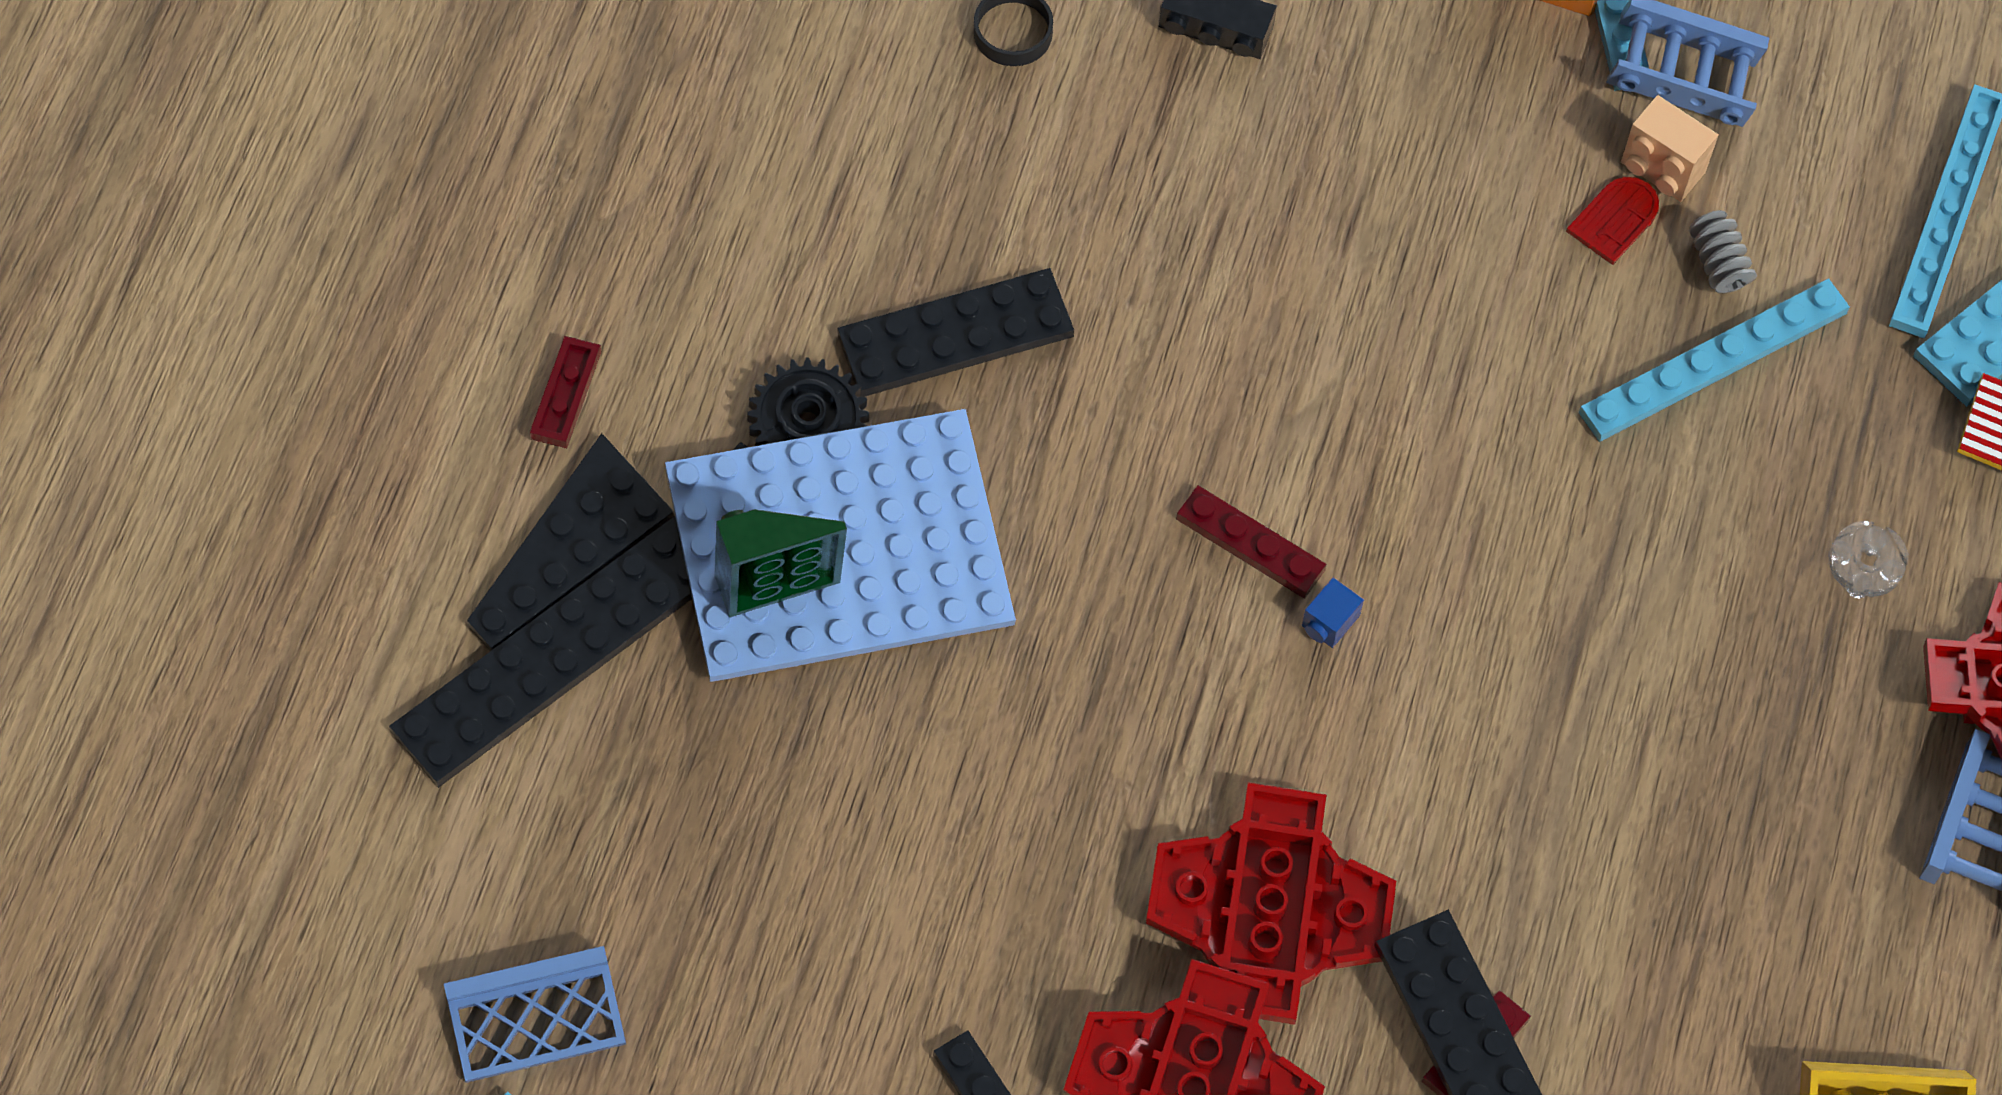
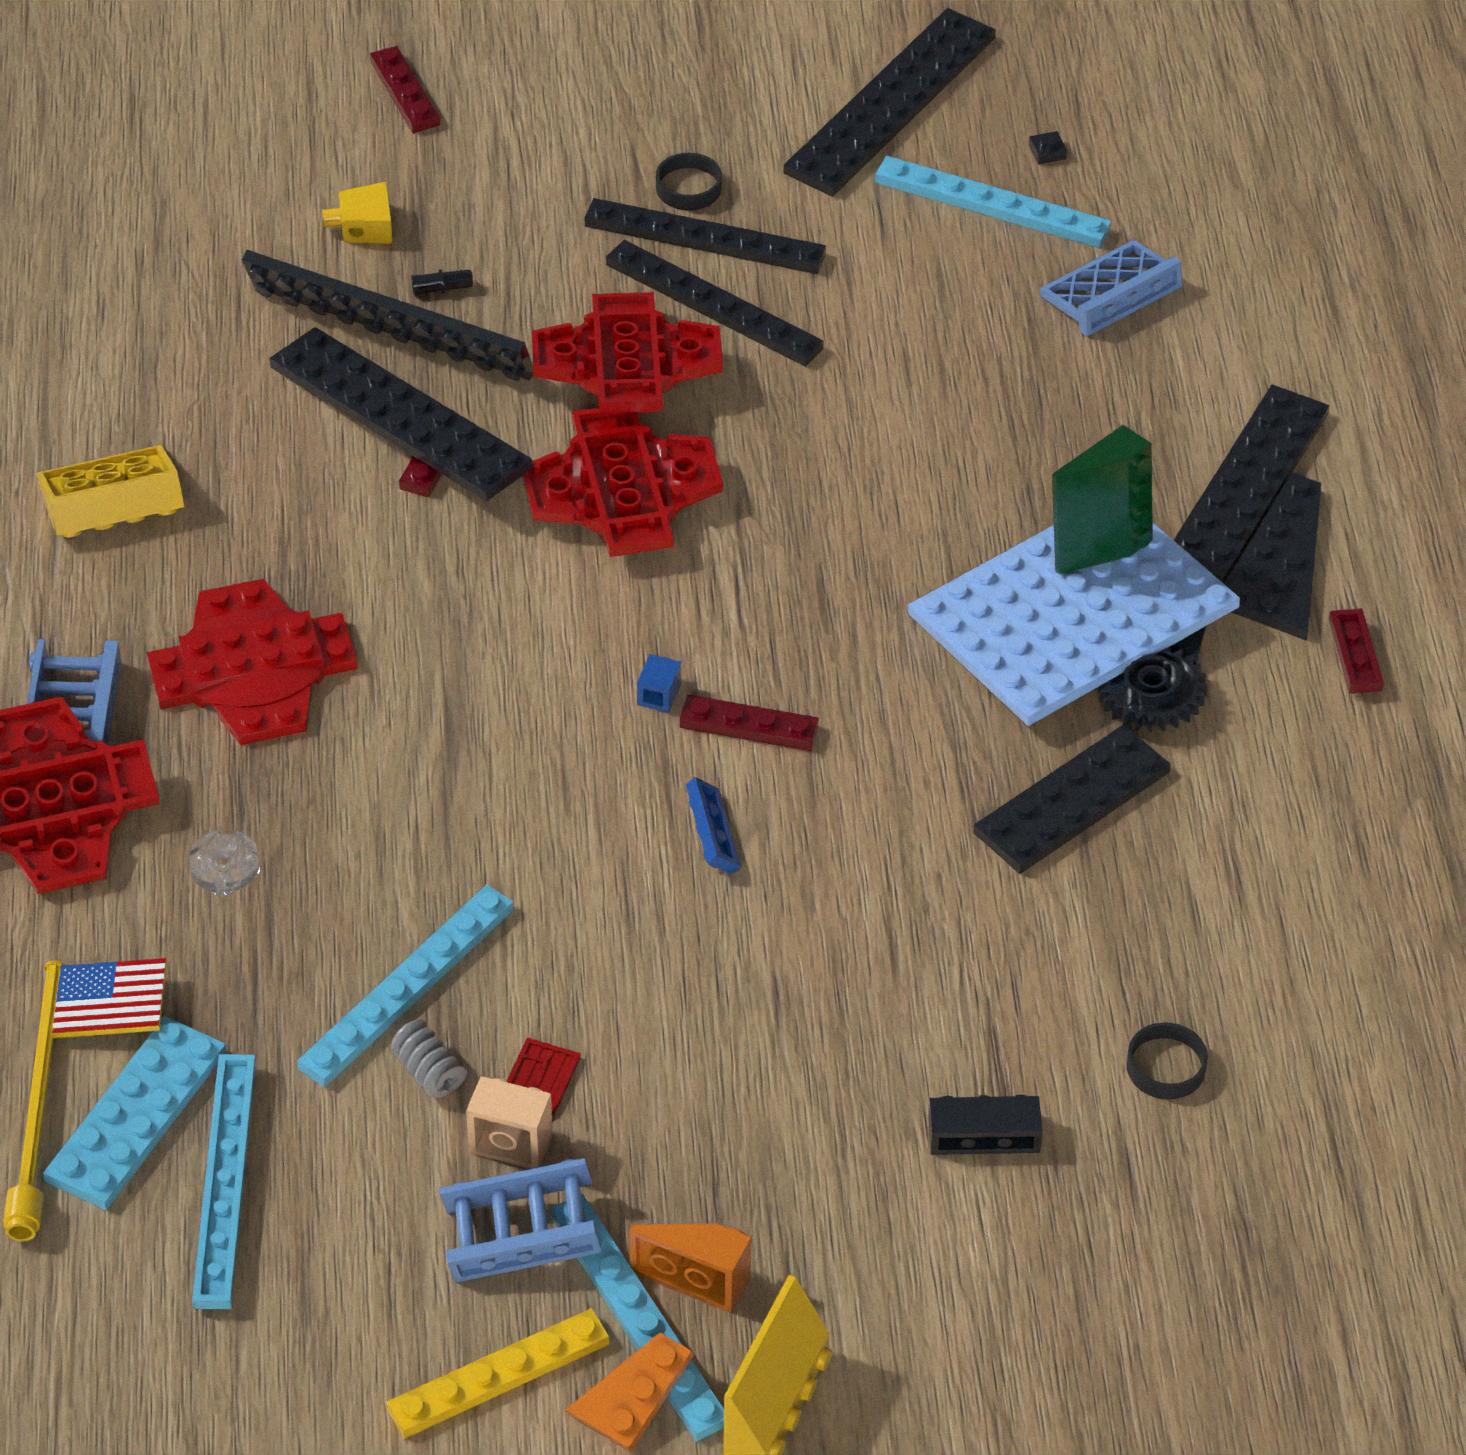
camera: 160 degrees right, 15 degrees down
(1343, 418) = (713, 825): none -> blue plate
(1772, 820) = (251, 661): none -> red plate

